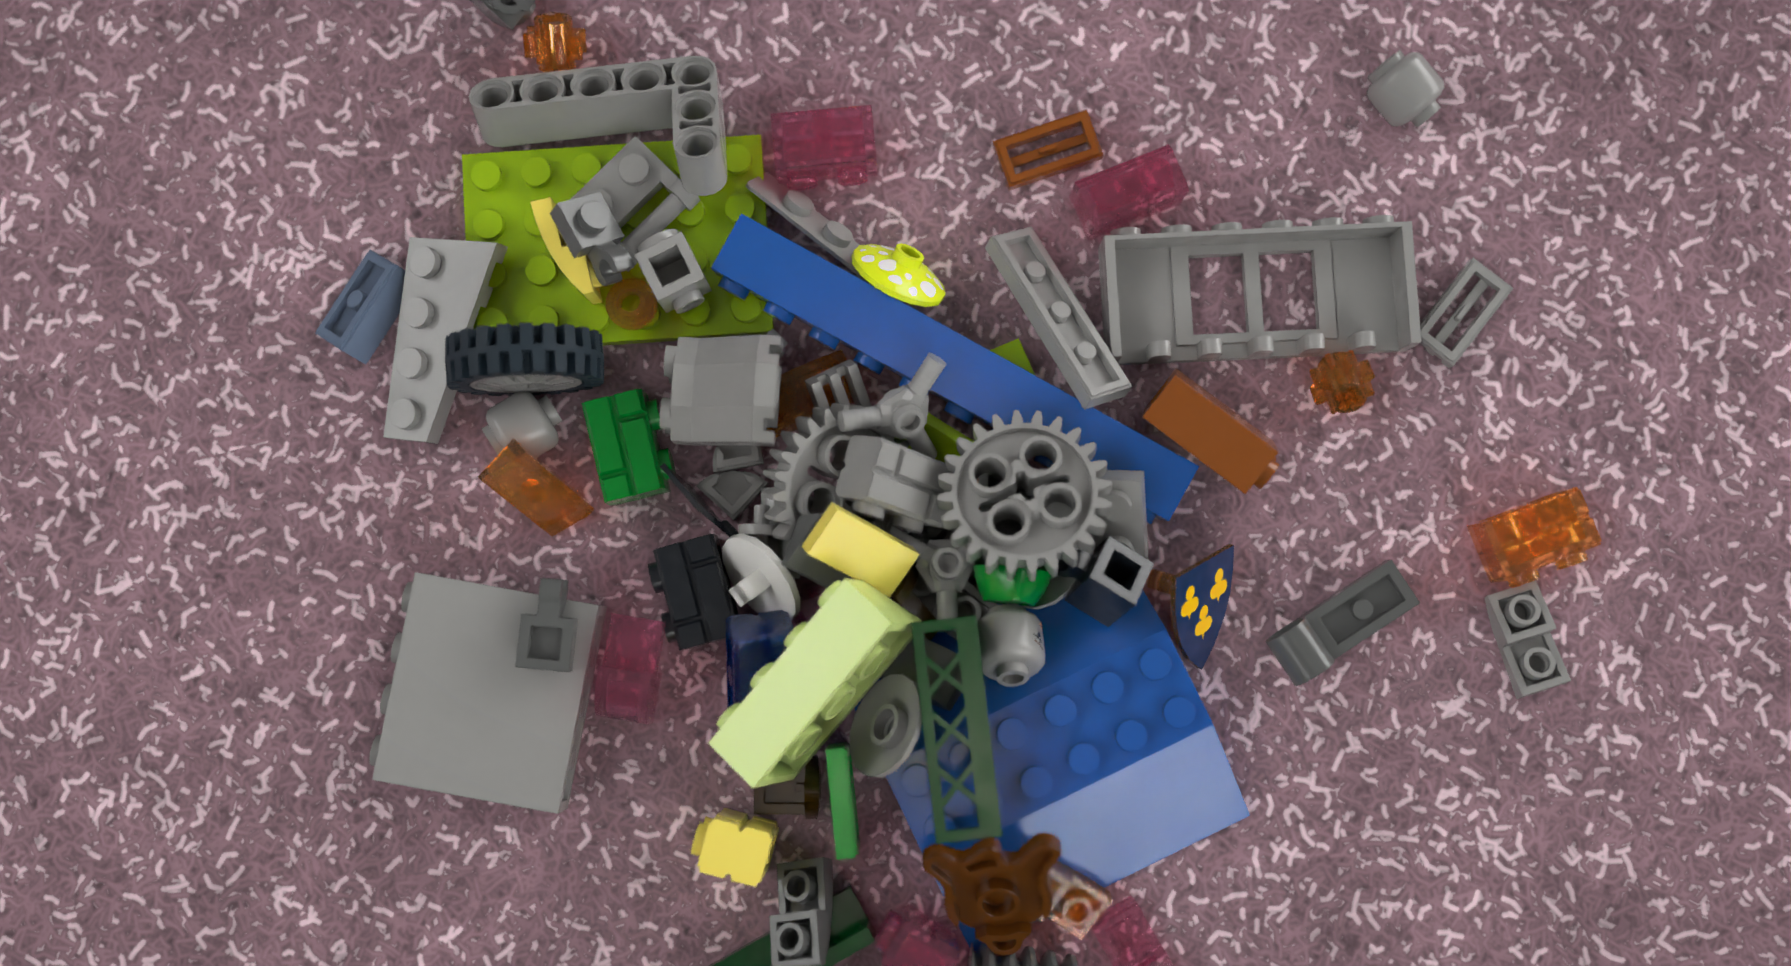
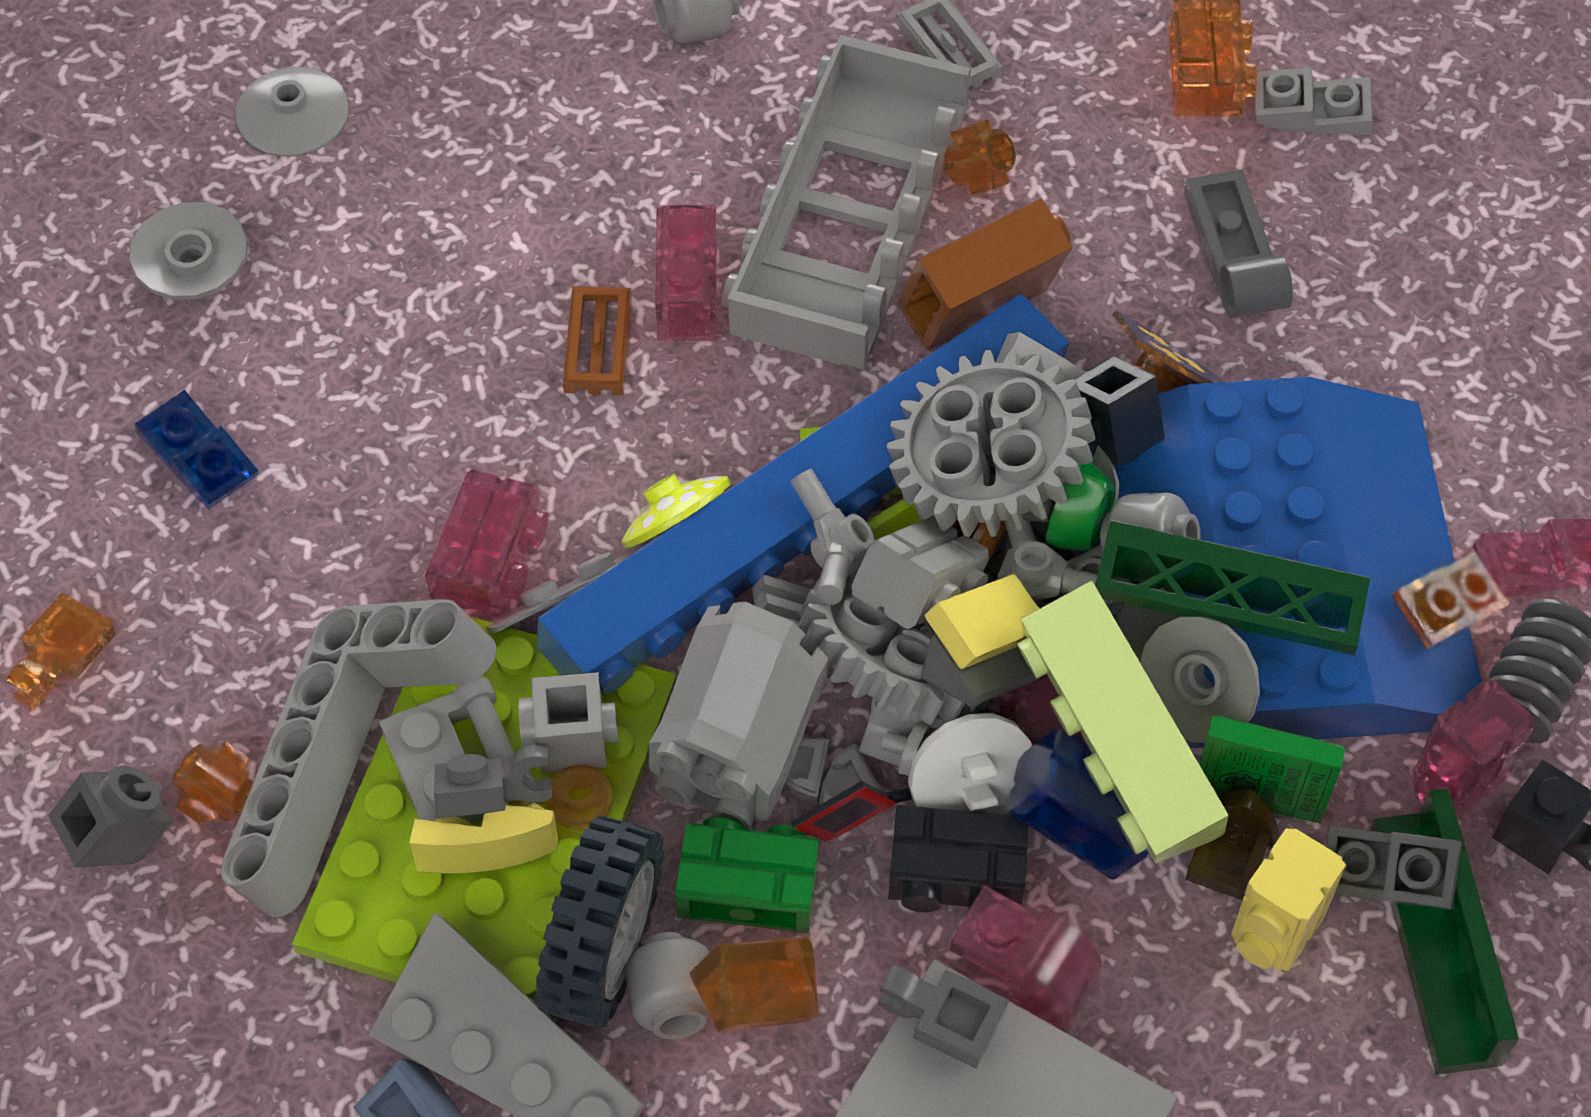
camera: 70 degrees left, 25 degrees down
(996, 888) = (1425, 620): reddish brown tile -> none
(1058, 317) = (795, 375): light grey tile -> none

